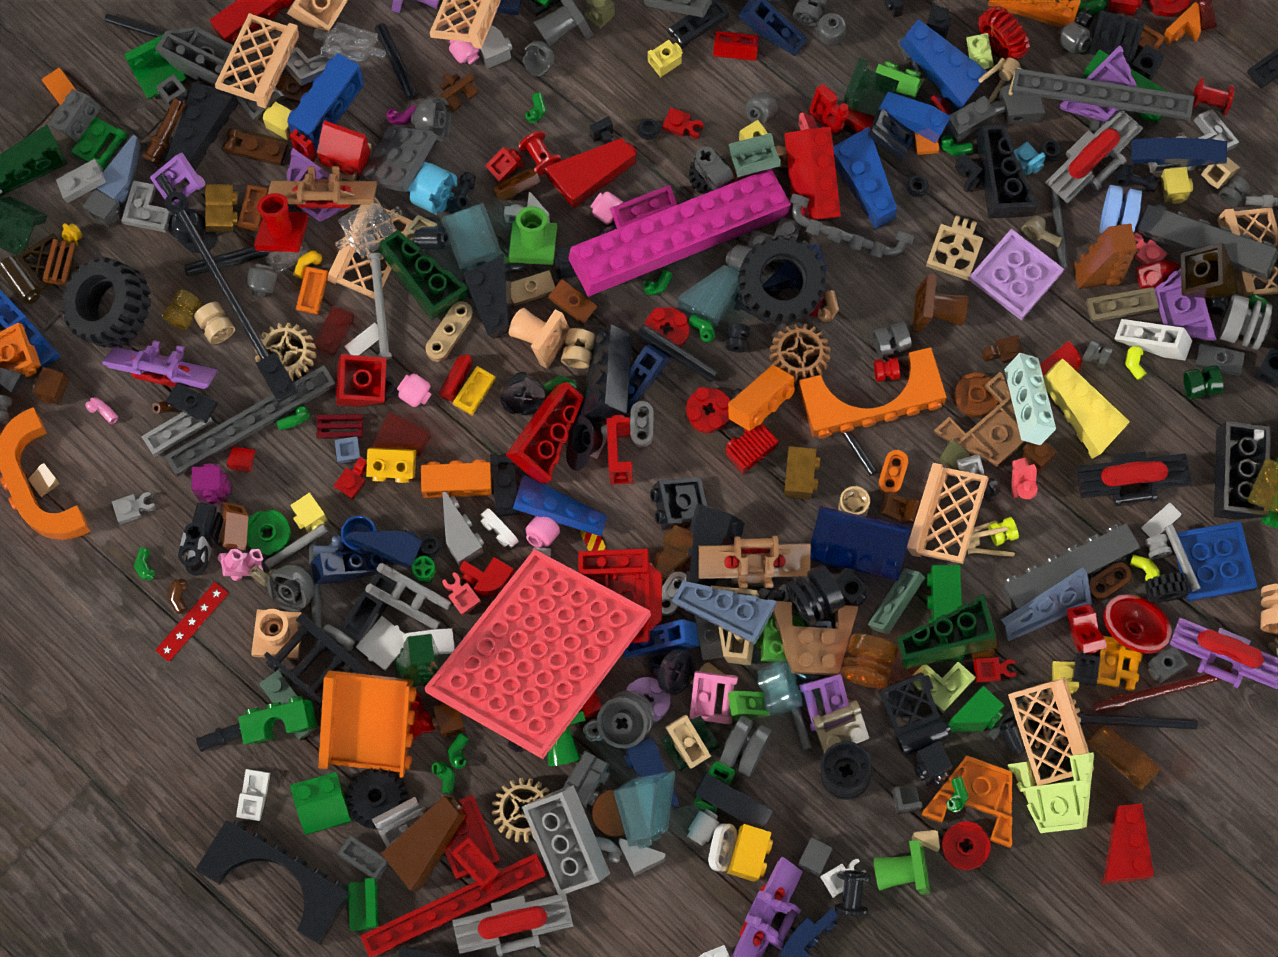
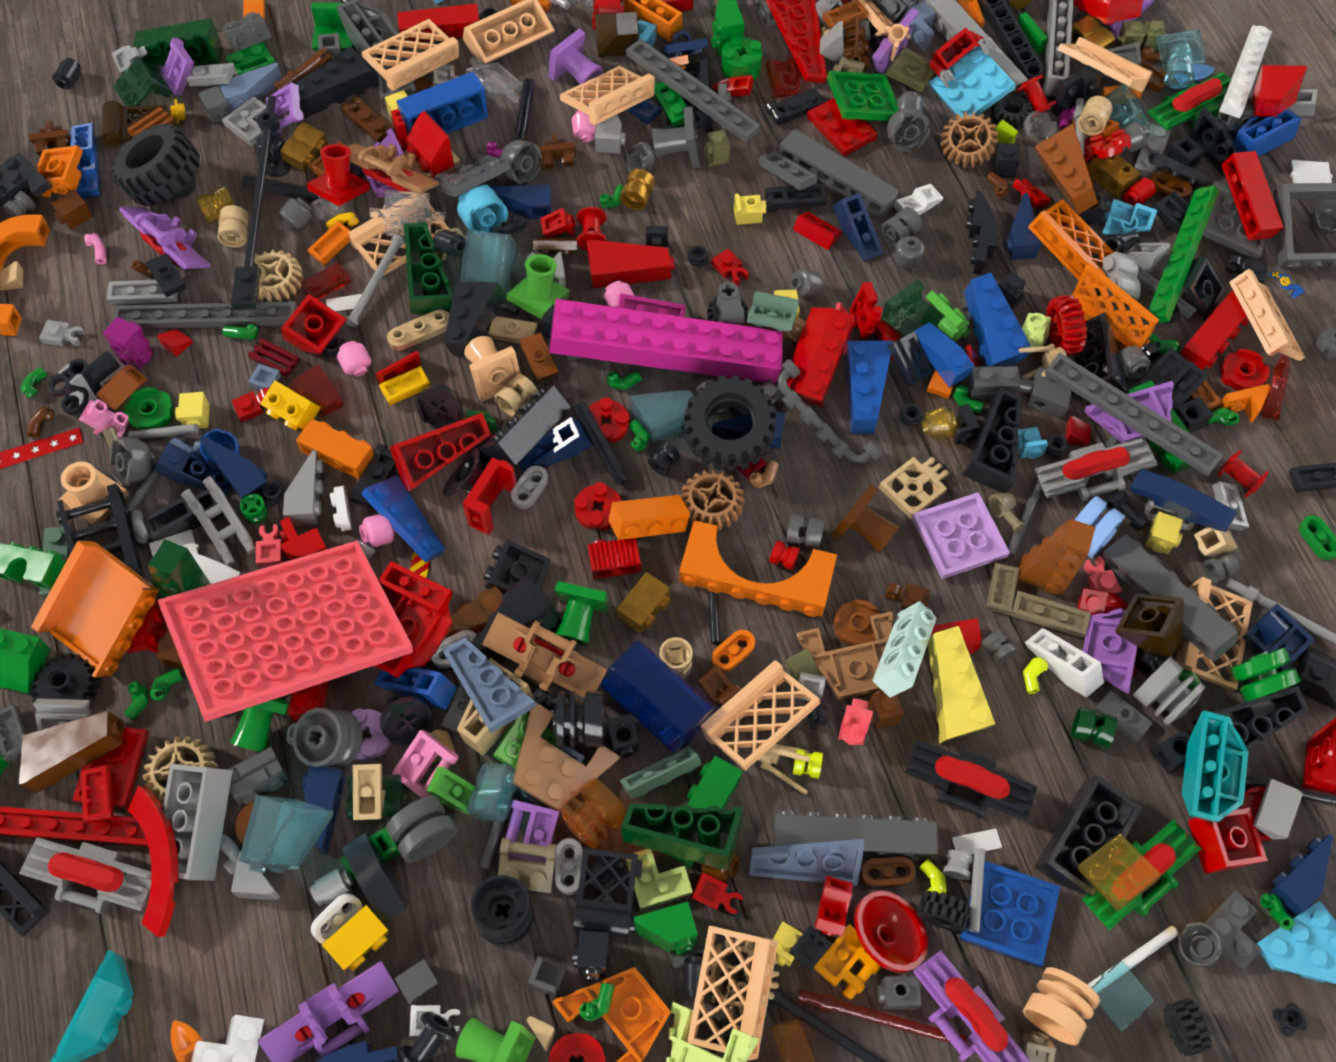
camera: 25 degrees right, 10 degrees down
(46, 191) = (177, 67): none -> medium lavender plate
(463, 154) = (526, 200): none -> dark blue slope
(555, 91) = (637, 189): none -> pearl gold wheel
(564, 876) = (164, 859): none -> red tile
(754, 509) = (579, 610): none -> green plant
(872, 711) = (568, 867): none -> light grey plate
(946, 182) = (939, 423): none -> clear yellow head
(1046, 49) = (1101, 354): none -> black wedge
(1061, 128) = (1077, 432): none -> red slope
(1074, 302) = (1002, 588): none -> dark tan plate
(1173, 48) = (1224, 417): none -> green arm

